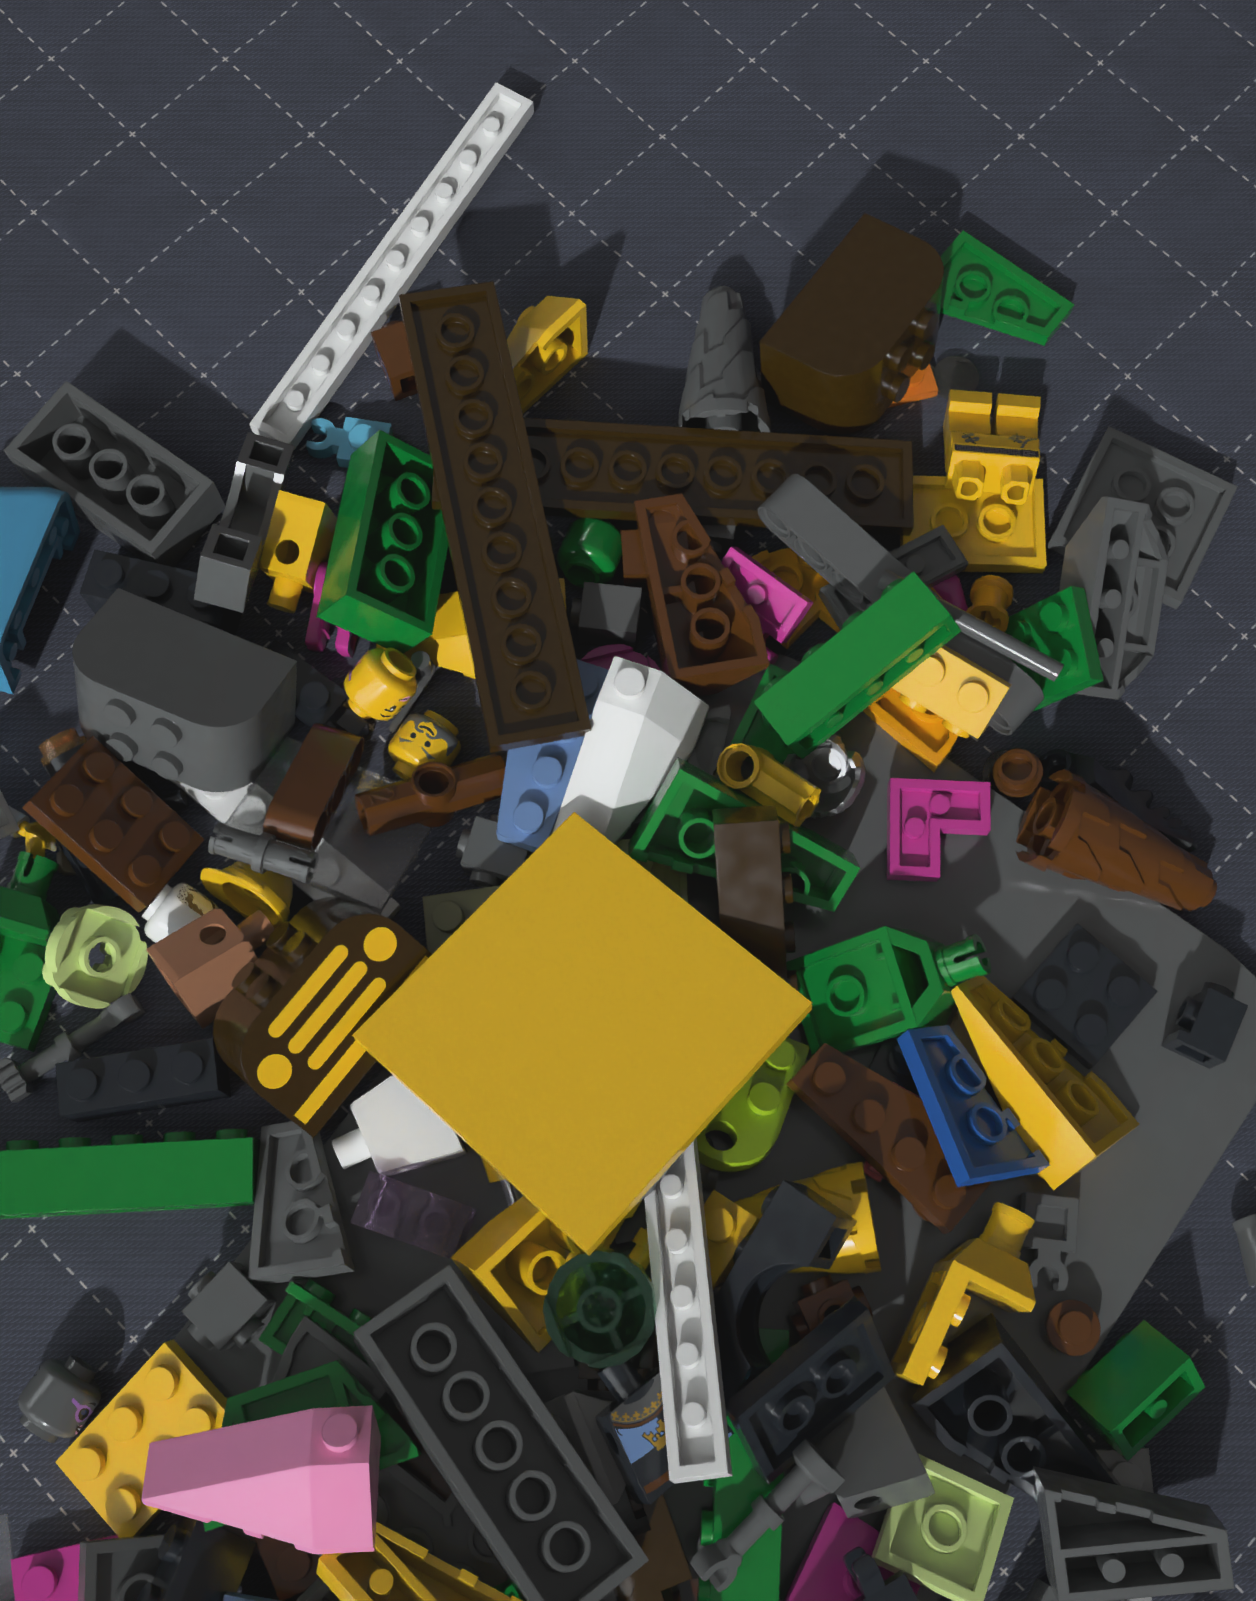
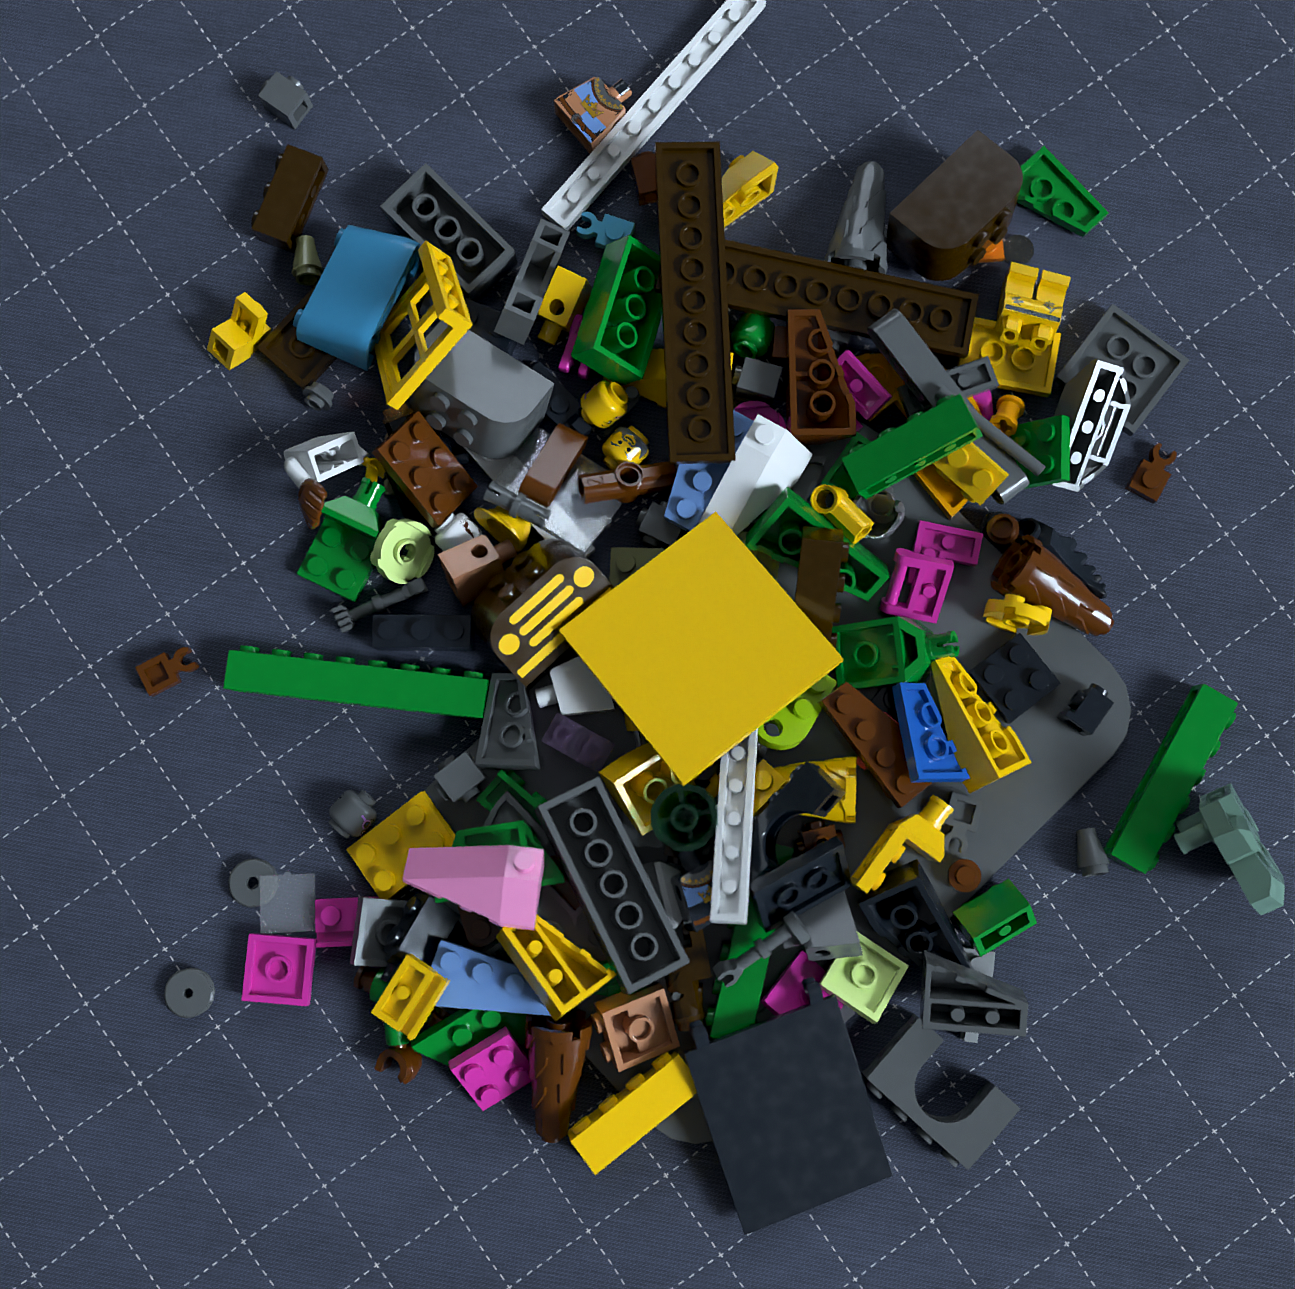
camera: 10 degrees right, 10 degrees up
(111, 560) = (448, 306): none -> yellow window
(305, 278) = (592, 110): none -> torso
(922, 877) = (926, 590): none -> dark pink plate
(1066, 893) = (1015, 614): none -> yellow plate
(1218, 662) = (1150, 477): none -> reddish brown plate

